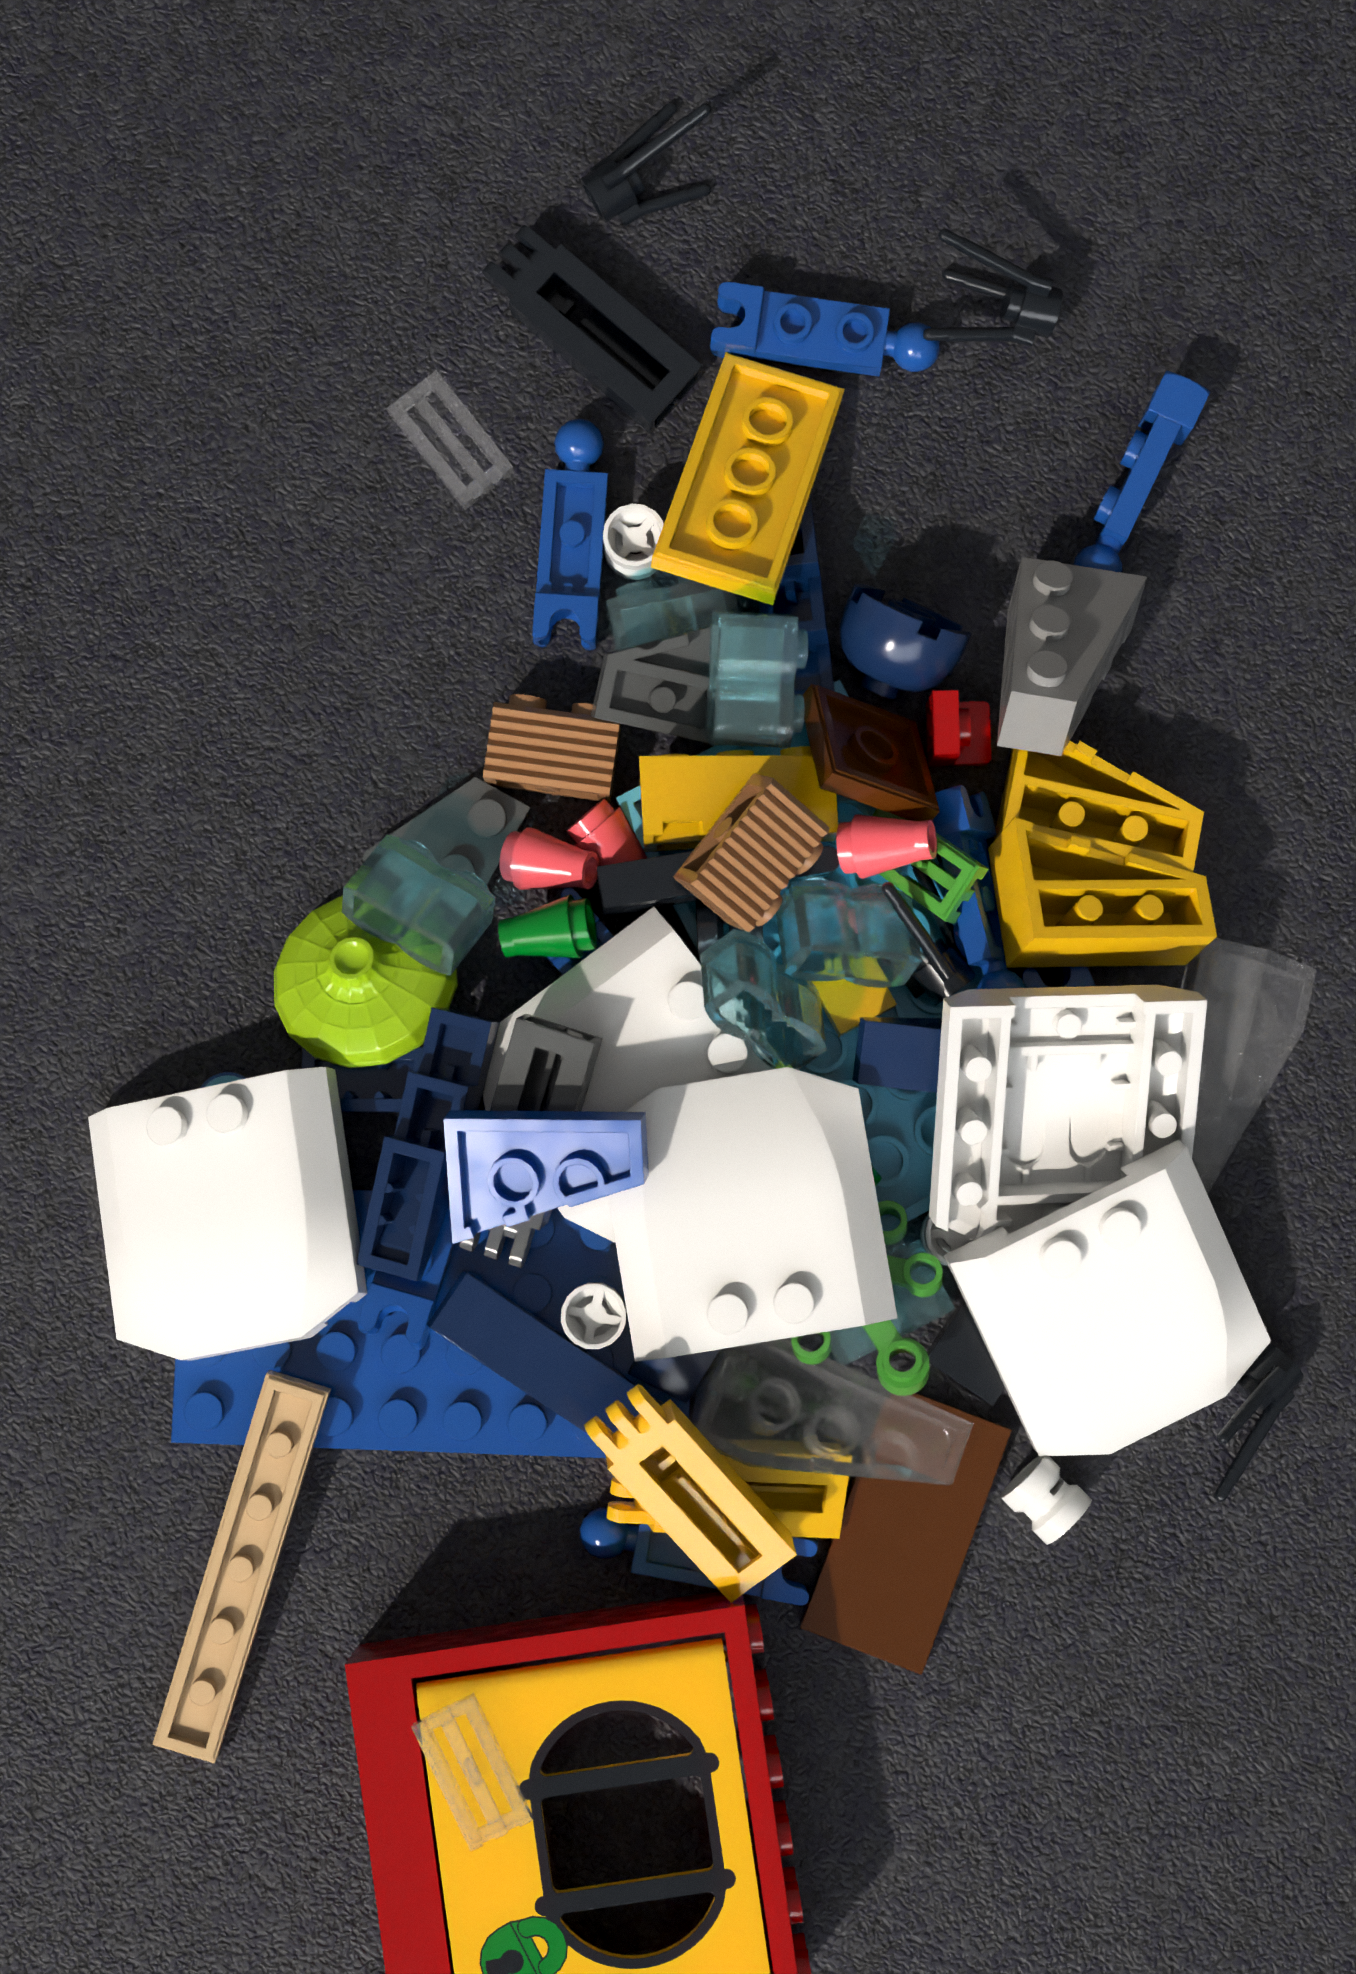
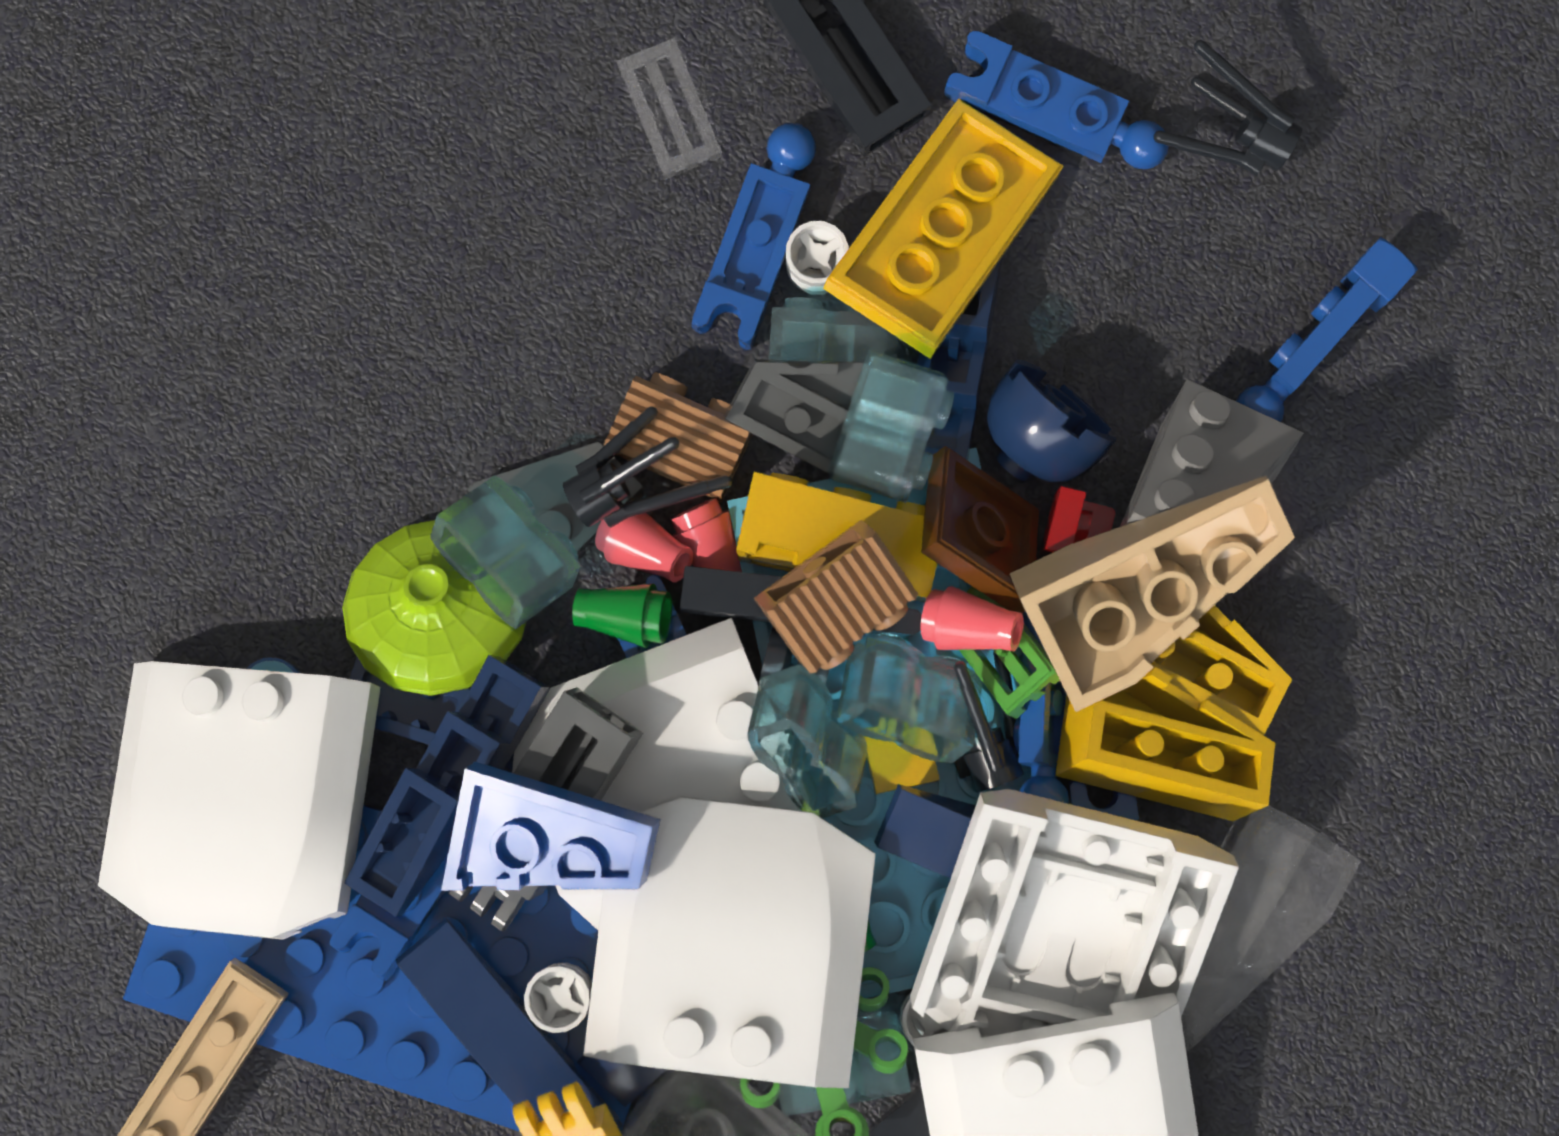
camera: 25 degrees right, 0 degrees up
(493, 820) = (599, 490): none -> black plant
(1034, 765) = (1136, 589): none -> tan wedge

